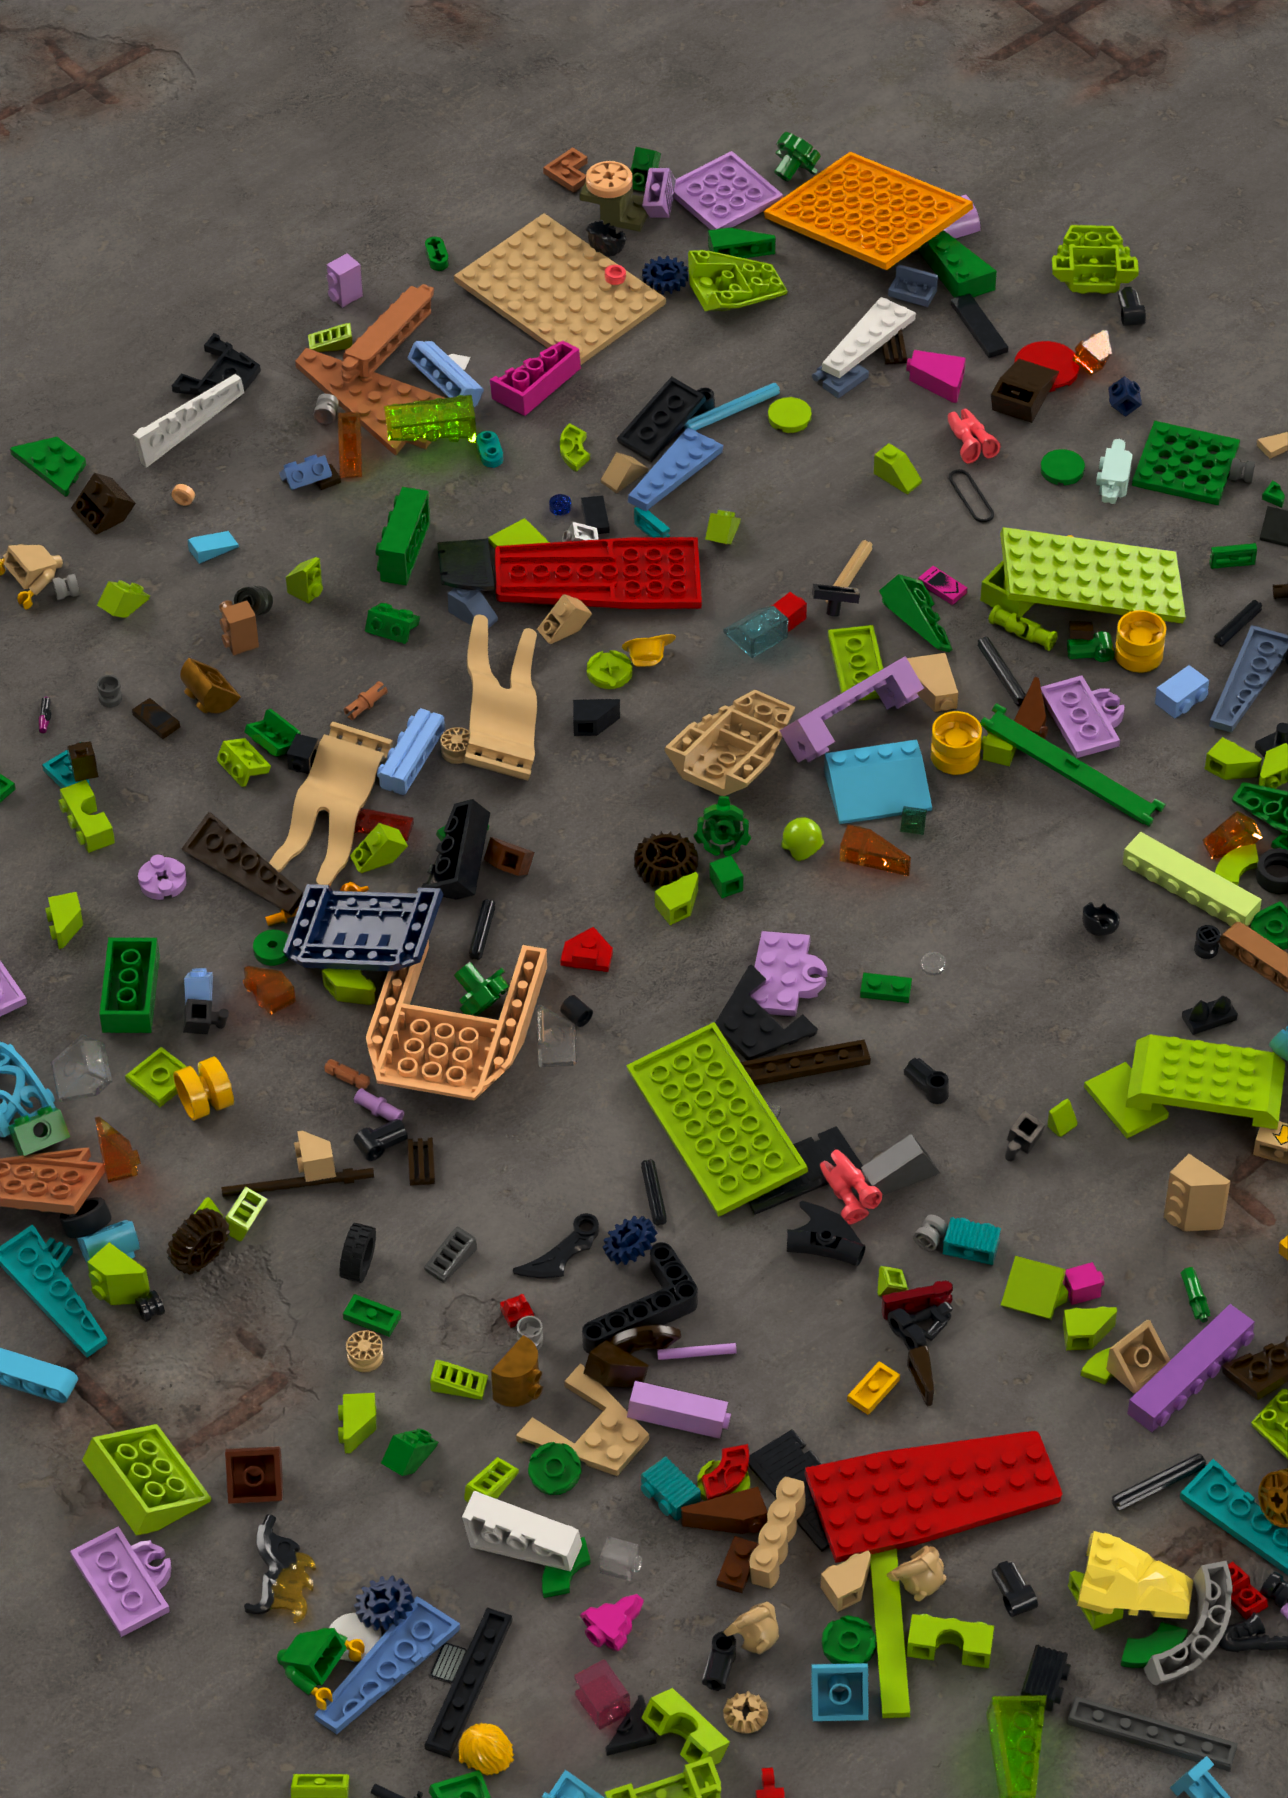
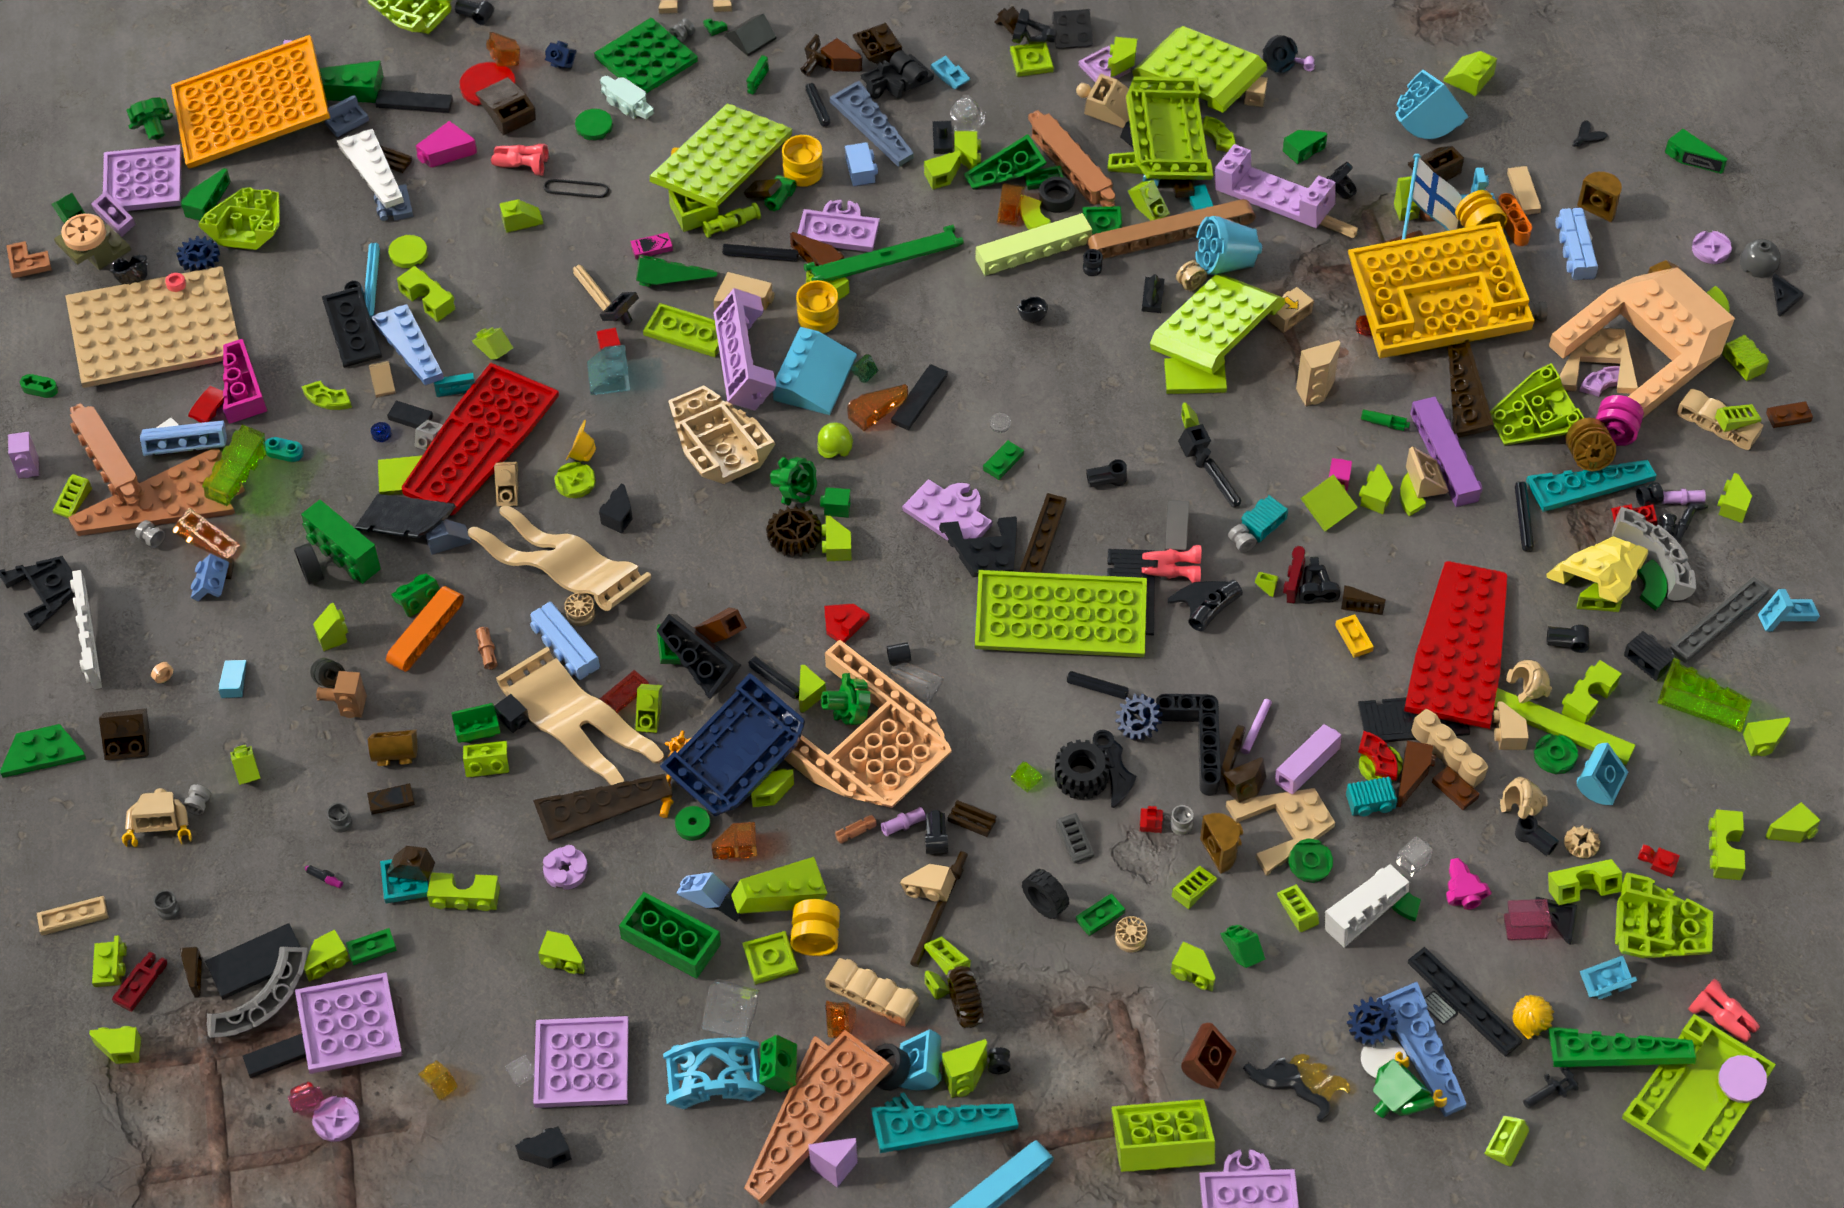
camera: 60 degrees left, 5 degrees up
(166, 1170) = (874, 993): none -> tan brick
(231, 1041) = (779, 888): none -> lime wedge
(356, 646) = (424, 628): none -> orange beam
(364, 527) = (309, 563): none -> black tyre
(484, 957) = (810, 688): none -> lime slope
(490, 368) = (207, 405): none -> red slope
(500, 1182) = (1026, 776): none -> clear neon green tile
(533, 1204) = (1082, 755): none -> black tyre
(749, 442) = (416, 283): none -> lime arch
(915, 882) = (919, 397): none -> black tile
(996, 1185) = (1222, 482): none -> black axle
(1255, 1033) = (1192, 276): none -> tan wheel

